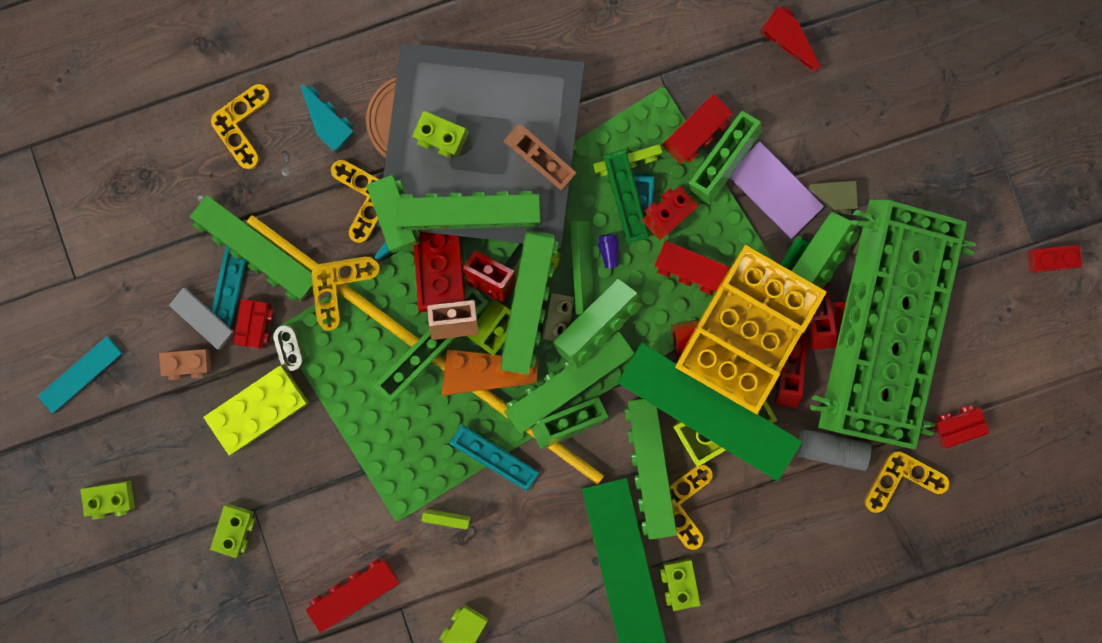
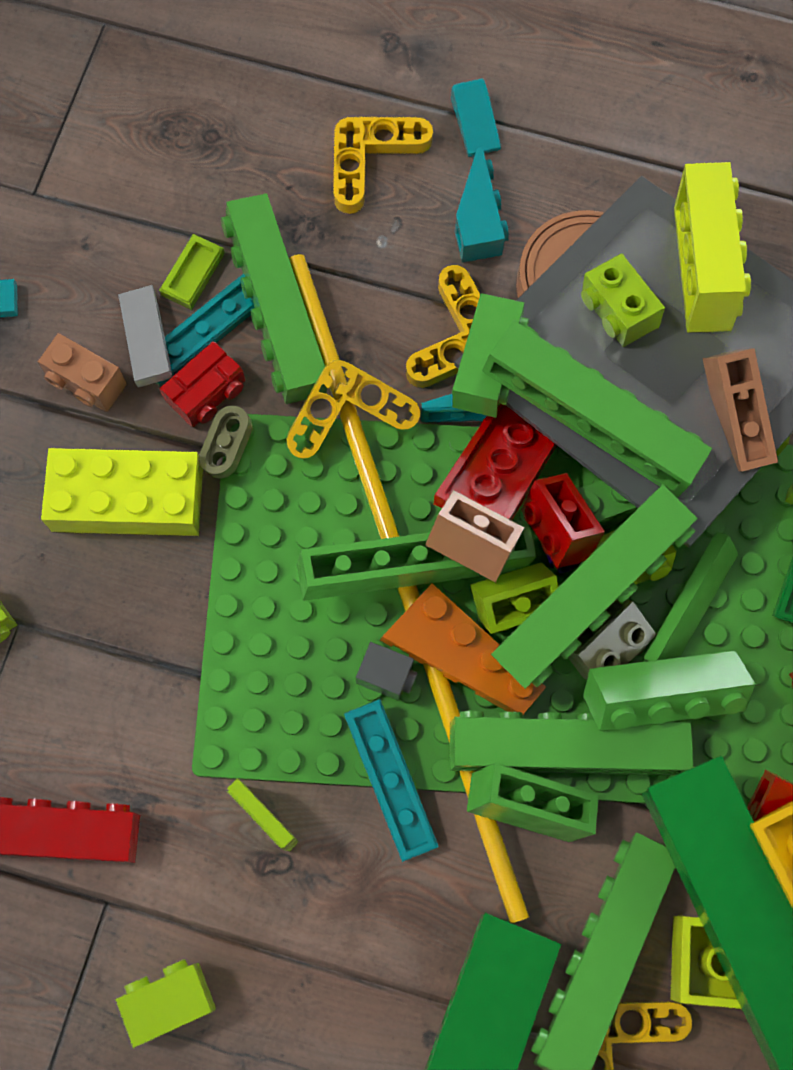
camera: 30 degrees right, 15 degrees down
(197, 263) = (192, 271): none -> lime tile
(284, 62) = (475, 116): none -> teal slope
(455, 408) = (386, 672): none -> dark grey brick
(463, 71) = (710, 247): none -> neon yellow brick
(609, 249) = (744, 607): dark purple cone -> none

